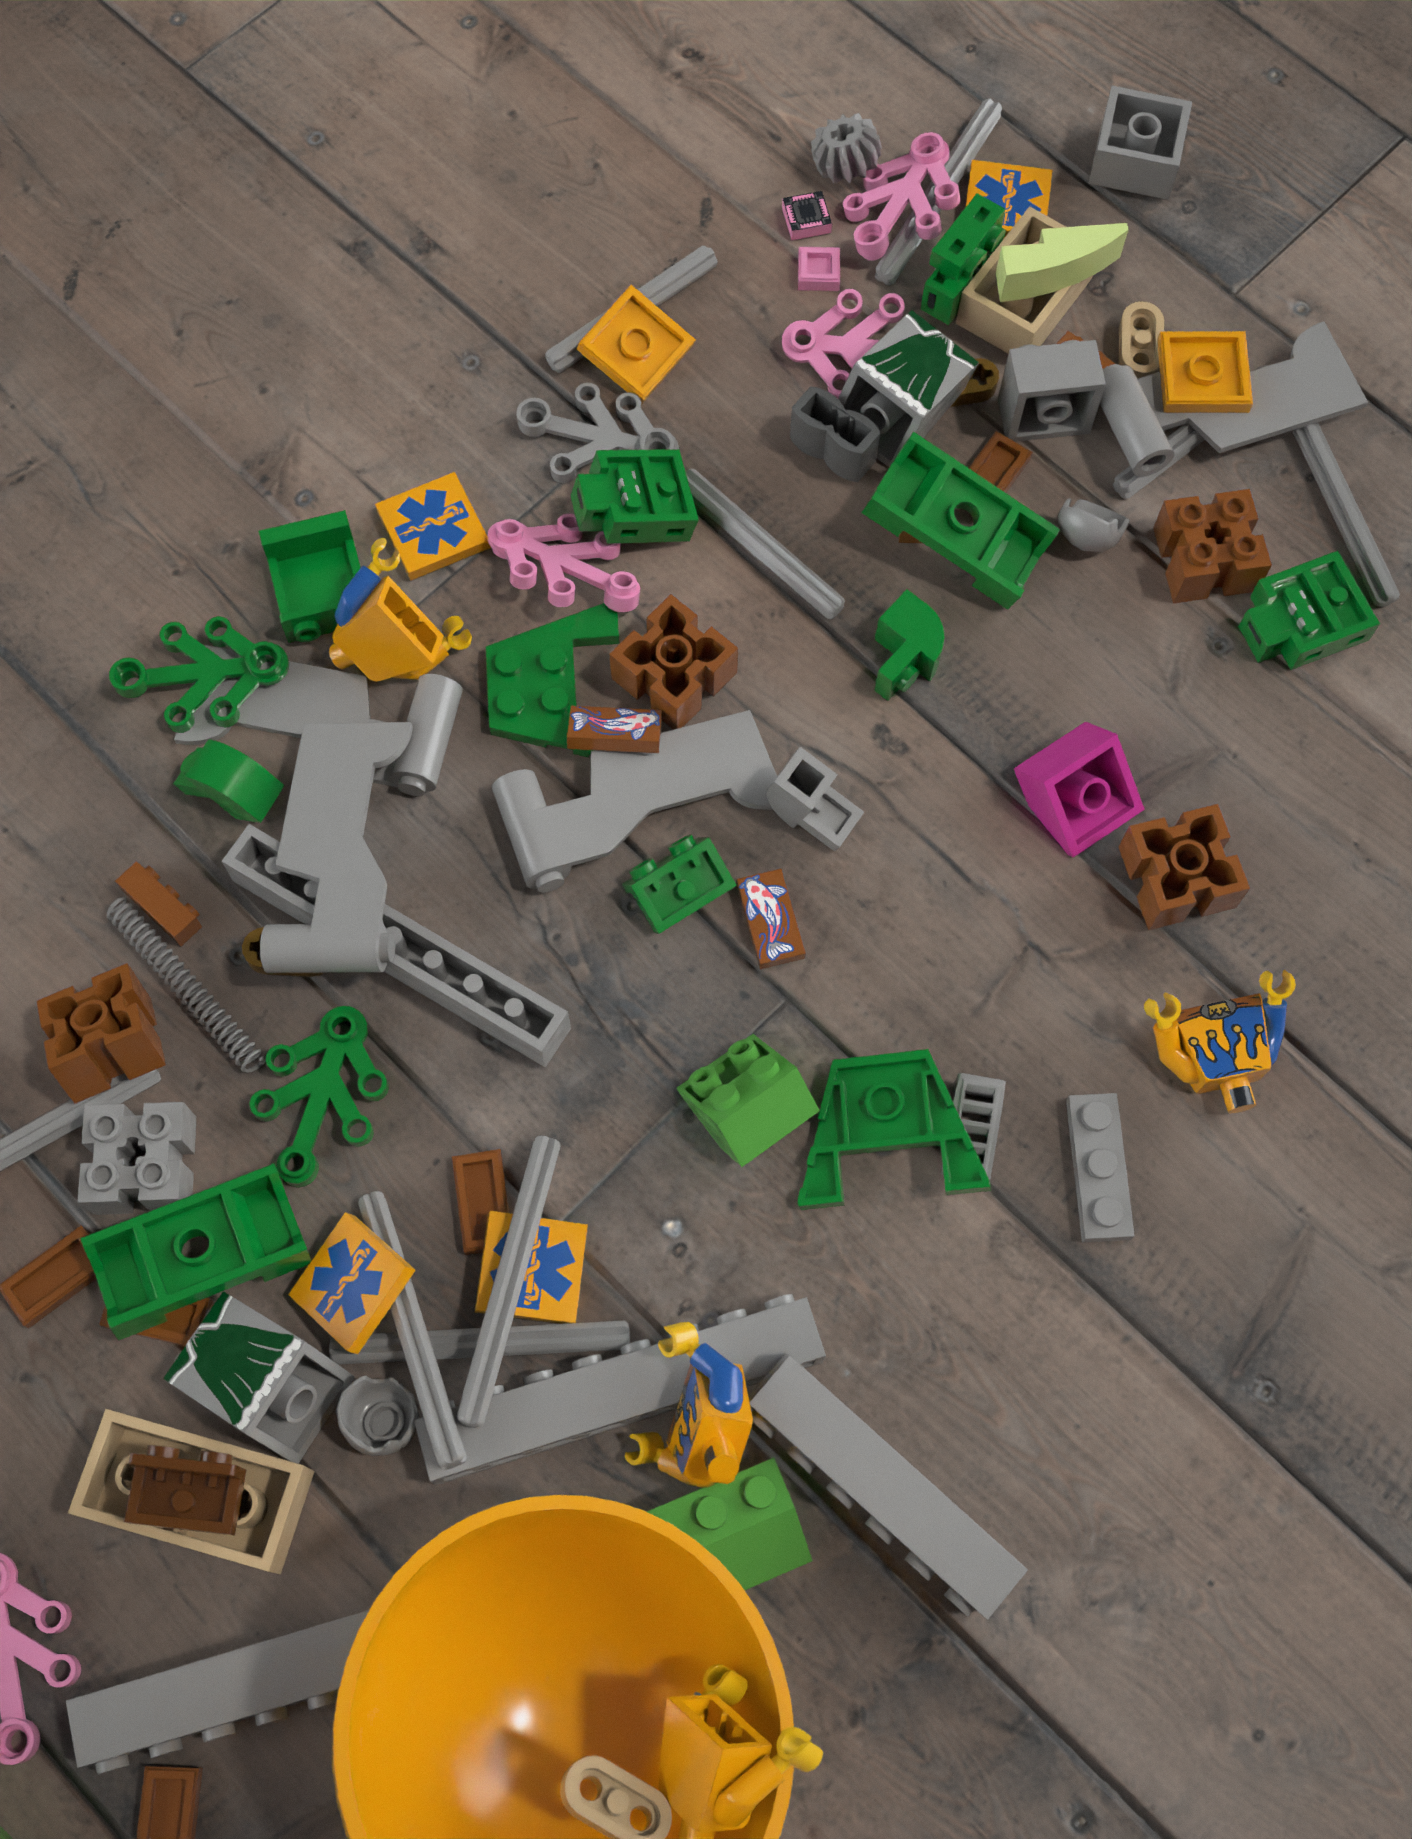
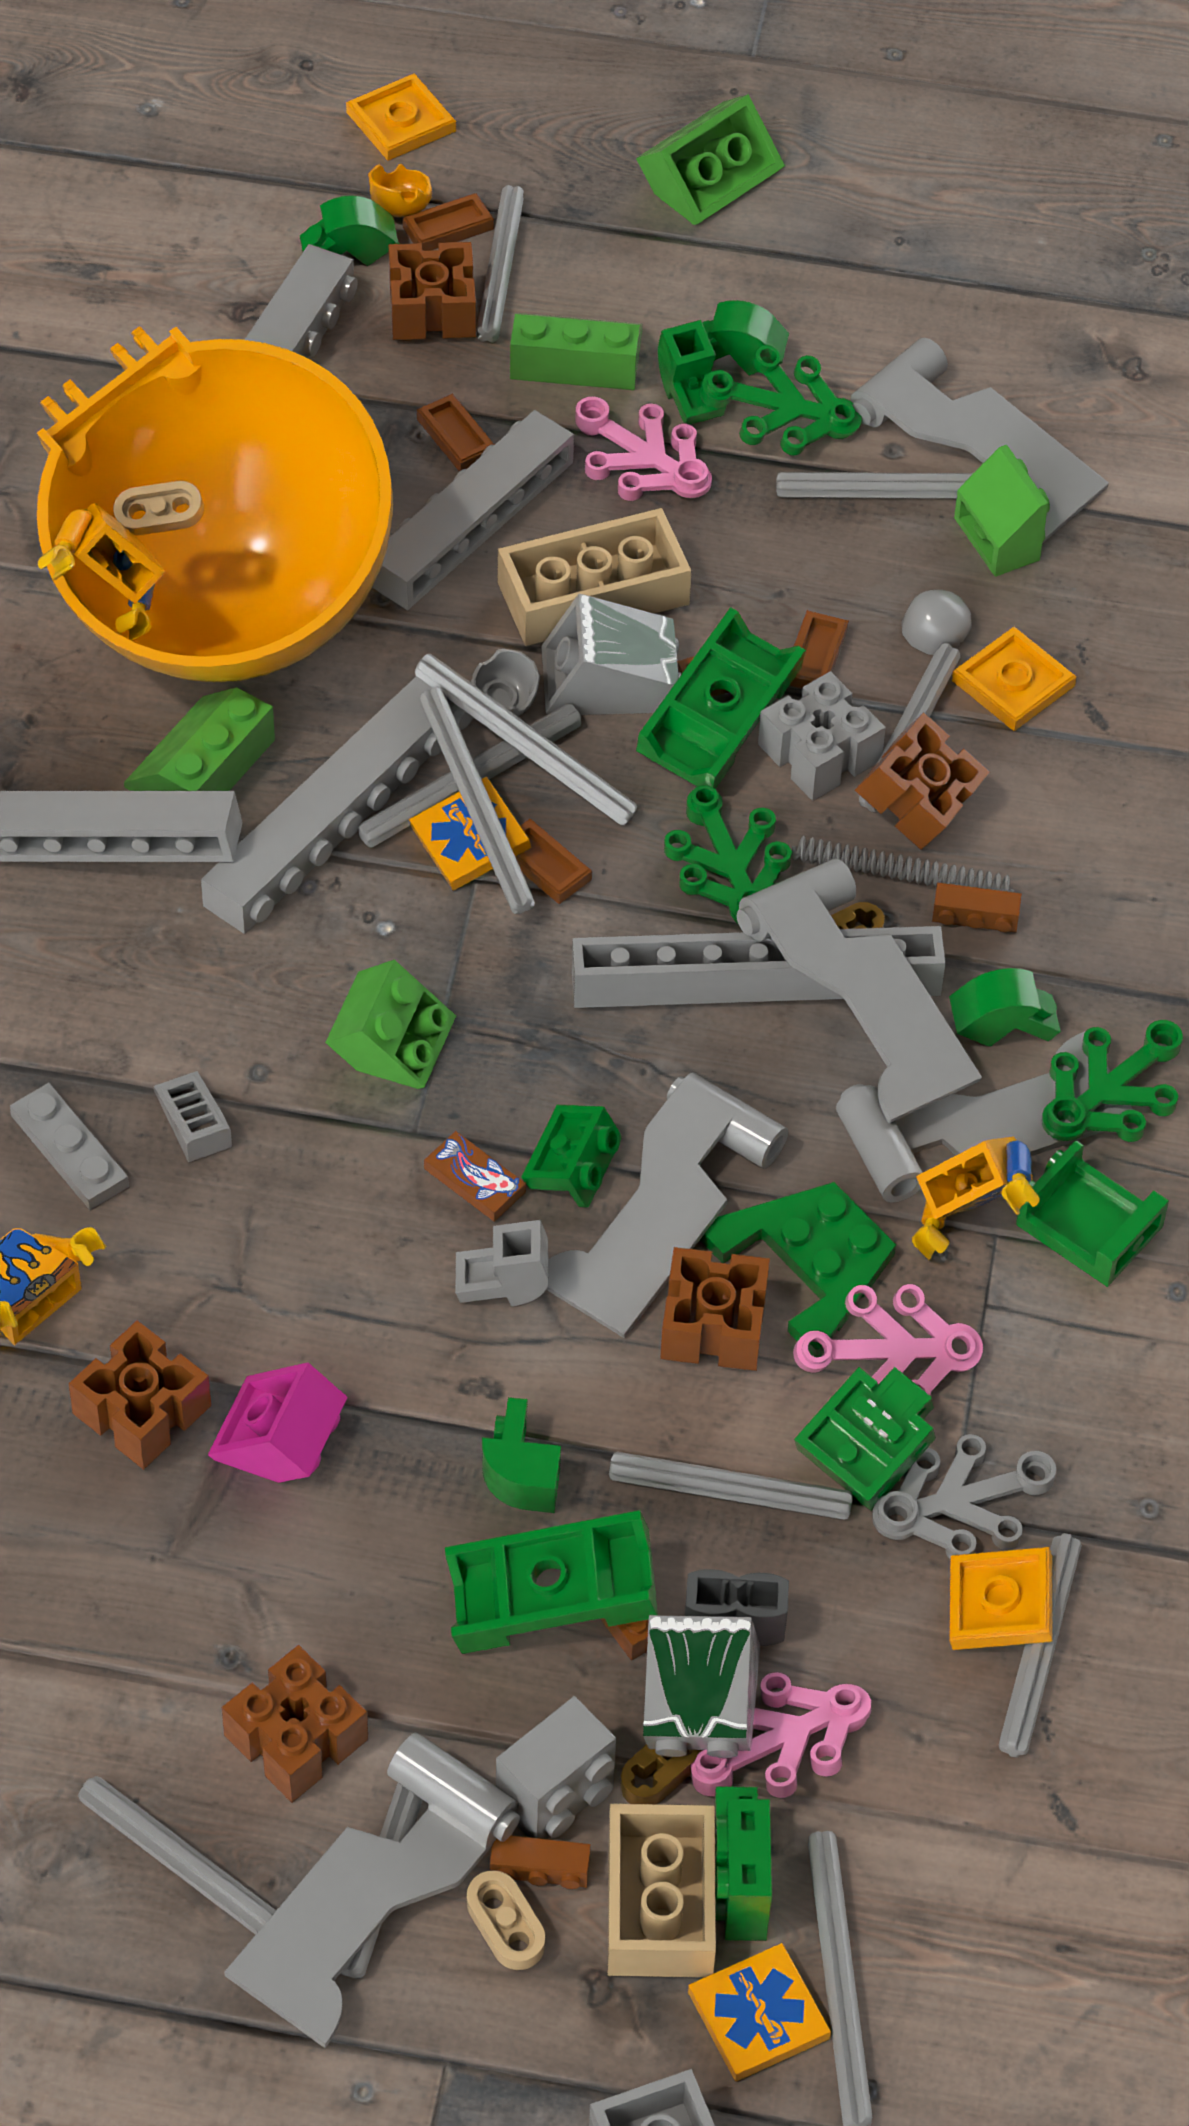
camera: 145 degrees right, 15 degrees down
(185, 1491) = (589, 545): reddish brown bracket -> none
(351, 1283) = (592, 743): light orange tile -> none
(432, 526) = (1039, 1326): light orange tile -> none
(614, 729) = (723, 1223): dark orange tile -> none
(709, 1419) = (262, 781): torso -> none
(806, 215) = (954, 1861): tile -> none
(819, 268) = (895, 1809): bright pink tile -> none
(846, 148) = (967, 1943): light grey gear -> none
(887, 1106) = (268, 1082): green wing -> none
(926, 156) = (864, 1929): bright pink plant -> none
(1001, 461) = (560, 1674): dark orange tile -> none
(1058, 260) = (638, 1872): yellowish green slope -> none
(1091, 525) = (427, 1675): light grey hair -> none
(1204, 372) = (414, 1895): light orange tile -> none
(1308, 613) = (158, 1713): green piece -> none

